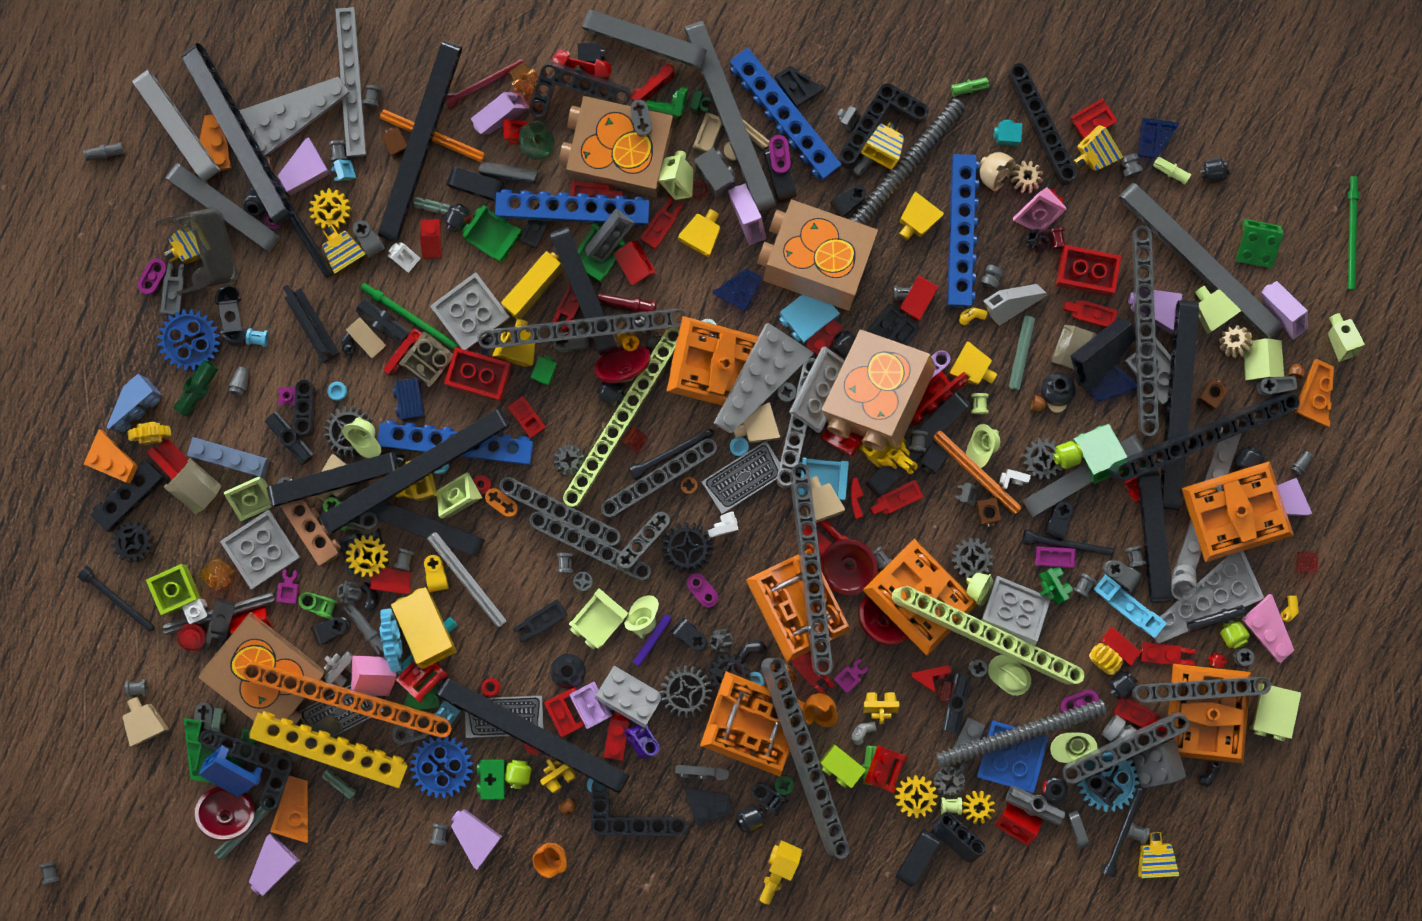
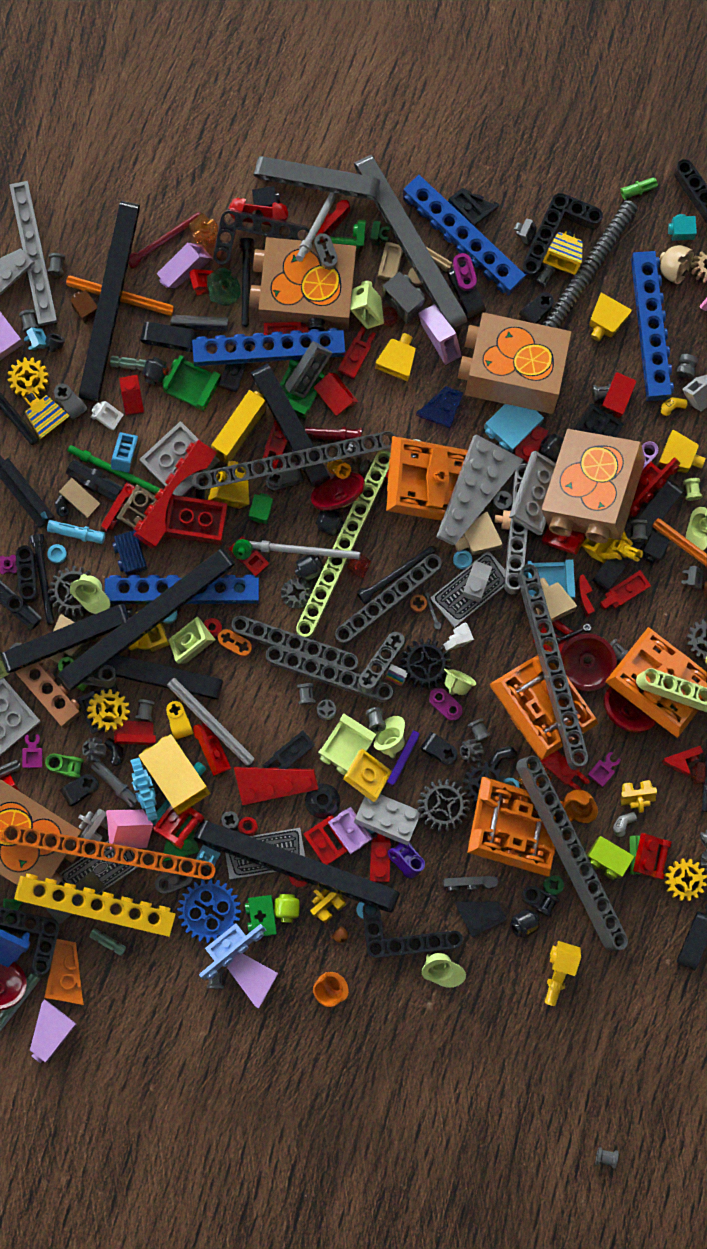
camera: 15 degrees left, 5 degrees down
(319, 377) = (37, 543): none -> black piece
(361, 175) = (54, 341): none -> black tile
(366, 374) = (84, 534): none -> medium azure pin
(413, 307) = (124, 463): none -> dark azure slope
(433, 377) = (153, 526): none -> red arch
(454, 805) = (228, 946): none -> light blue bracket
(464, 607) = (212, 749): none -> red hinge
(479, 679) = (228, 815): none -> dark grey bush
(514, 648) = (264, 784): none -> red wing
(520, 410) = (242, 549): none -> green tile
(545, 410) = (267, 546): none -> light grey bar
(565, 100) = (246, 246): none -> black piece
(584, 436) = (309, 567): none -> black head
(614, 652) = (367, 775): none -> yellow tile
(622, 109) = (306, 244): none -> light grey bar
(623, 190) = (316, 323): none -> black bush
(630, 598) = (375, 719): none -> dark grey bush
(657, 555) = (396, 675): none -> tile
(661, 854) = (442, 971): none -> yellowish green piece
(705, 509) = (437, 625): none -> dark grey hinge
(717, 570) = (458, 682): none -> yellowish green piece
(731, 620) = (479, 730): none -> dark grey bush
(749, 471) = (477, 581): none -> light grey slope
(785, 411) = (504, 519): none -> light nougat tile
(853, 532) = (587, 628): none -> black hinge

